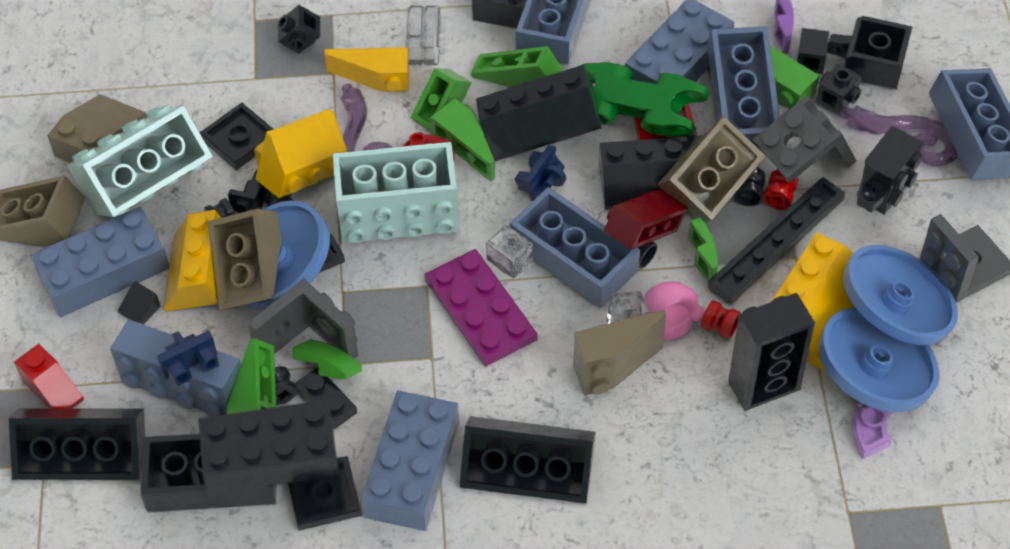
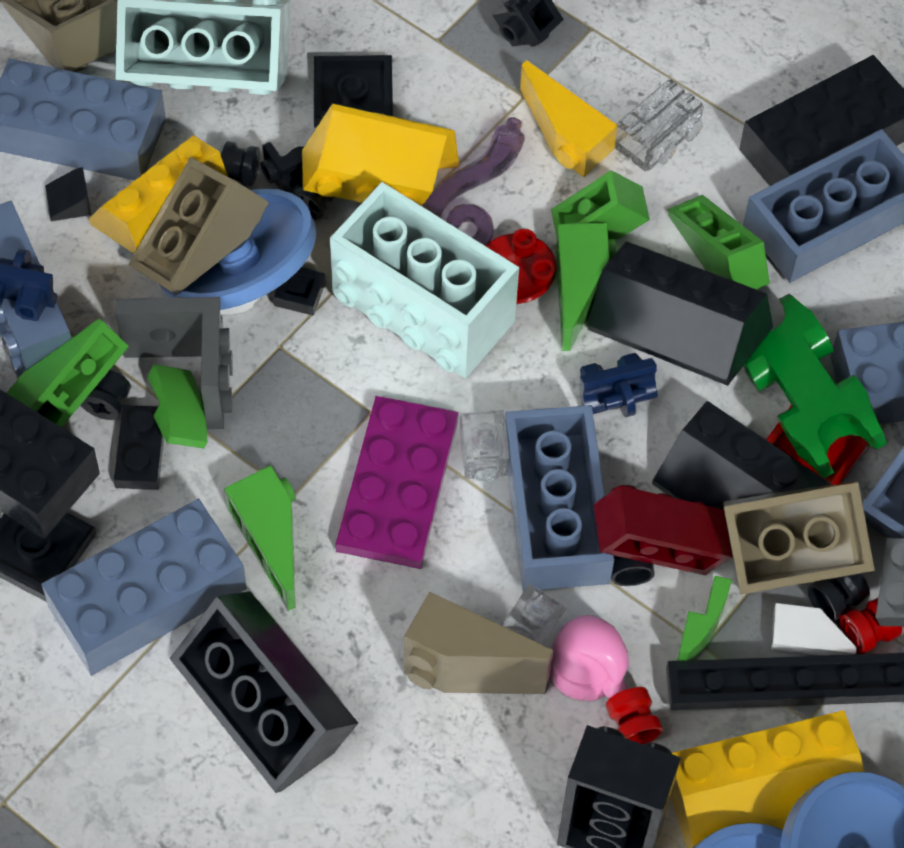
camera: 40 degrees right, 5 degrees up
(439, 377) = (265, 518): none -> bright green slope
(753, 217) = (807, 632): none -> white tile

